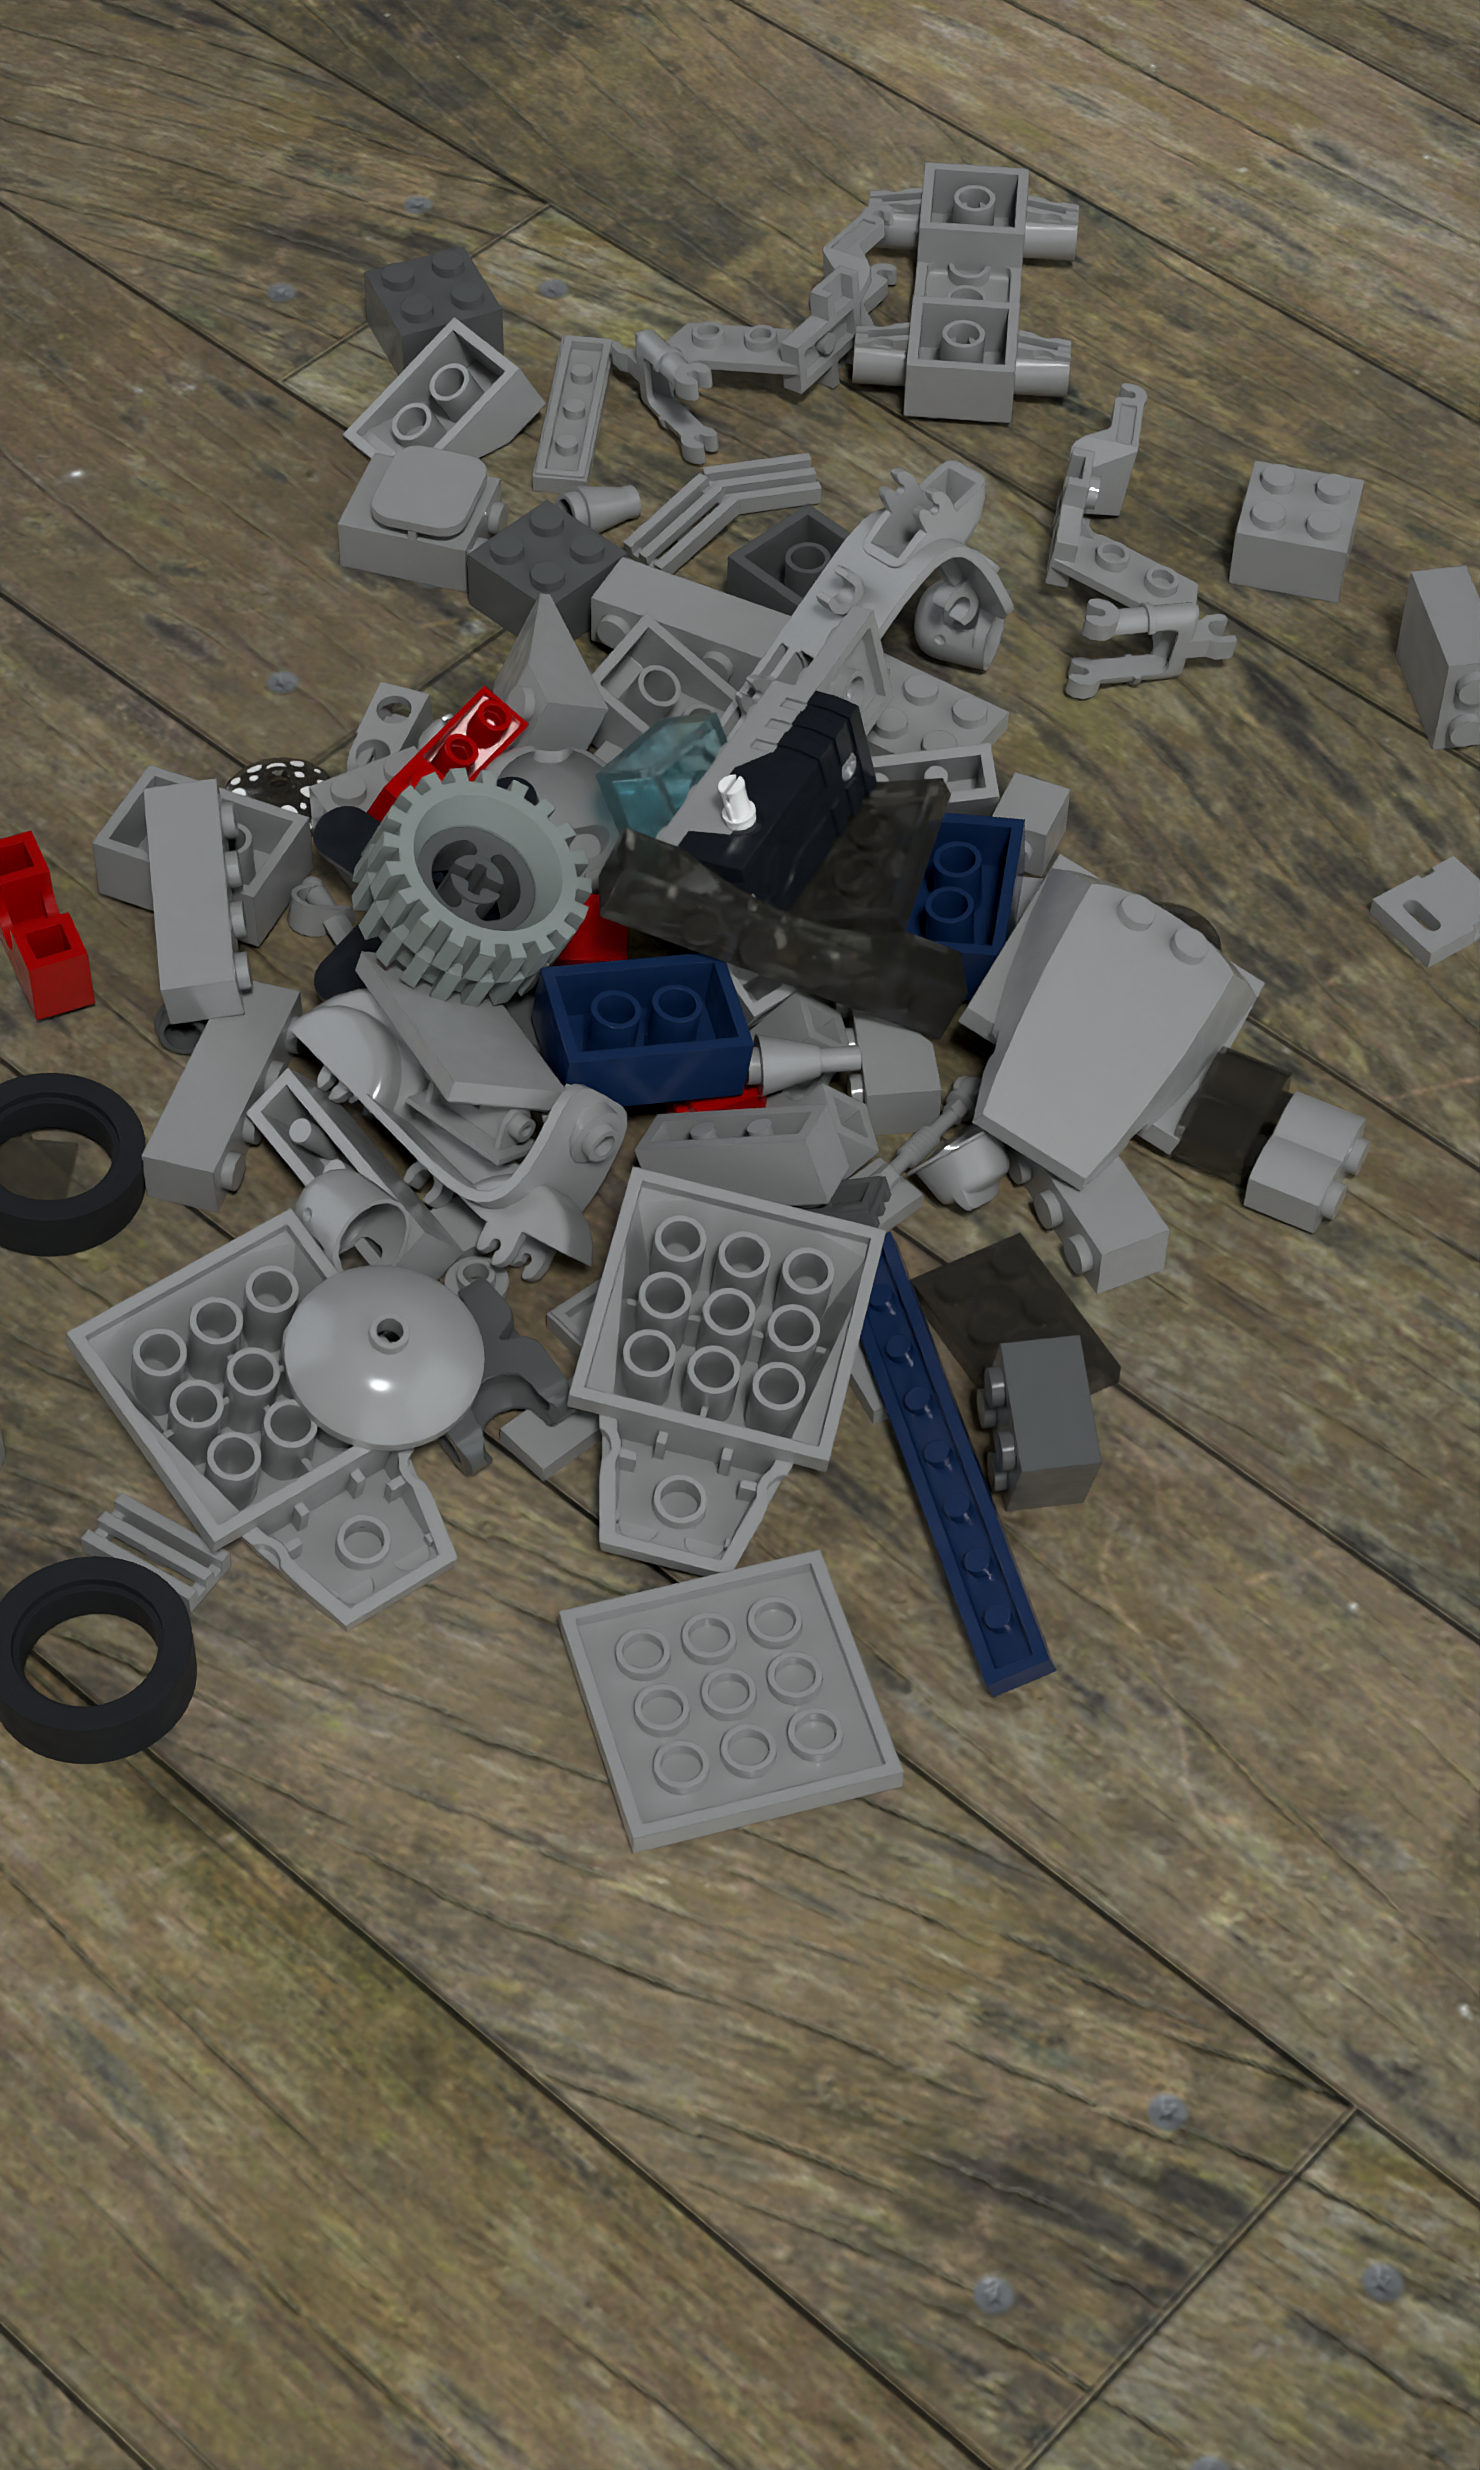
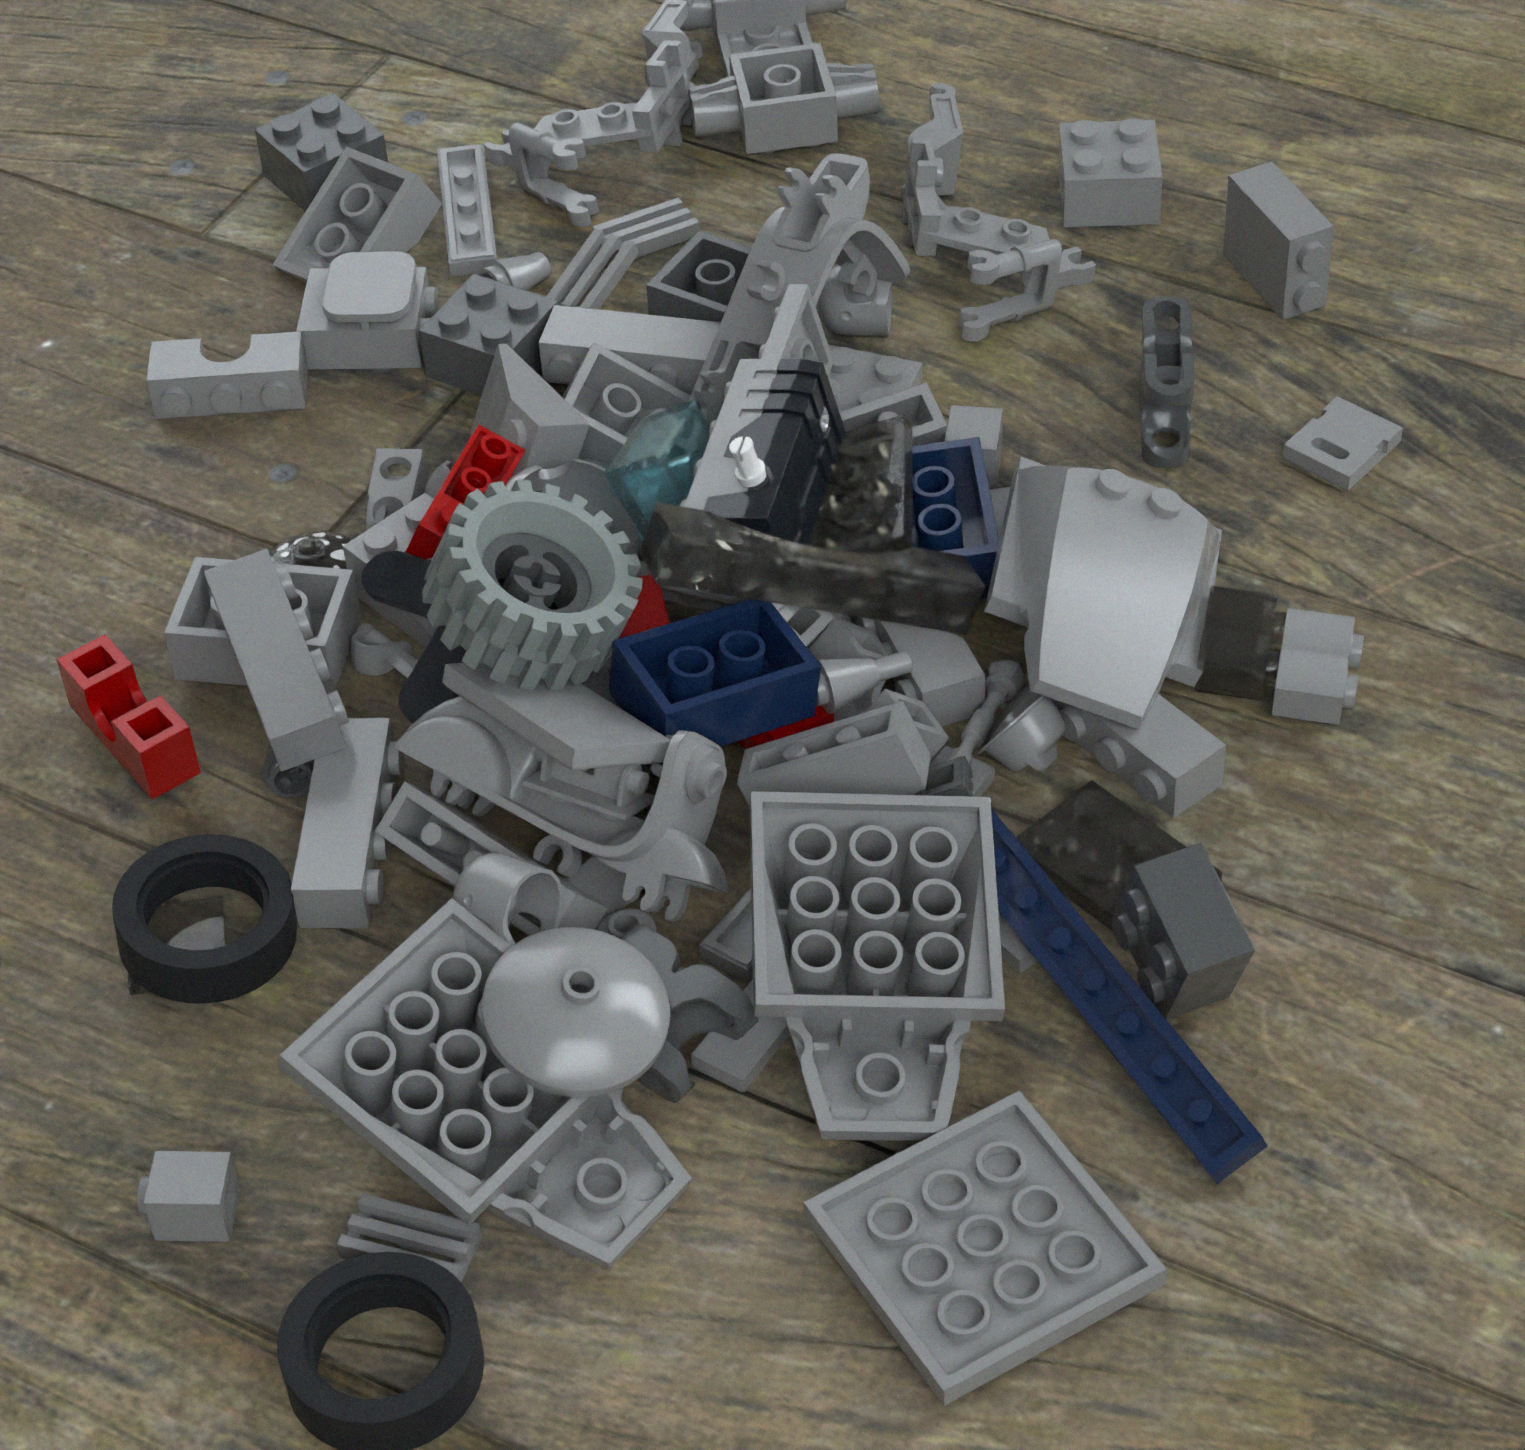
camera: 10 degrees left, 5 degrees down
(292, 570) = (263, 379): none -> light grey arch
(1261, 797) = (1166, 381): none -> dark grey piece

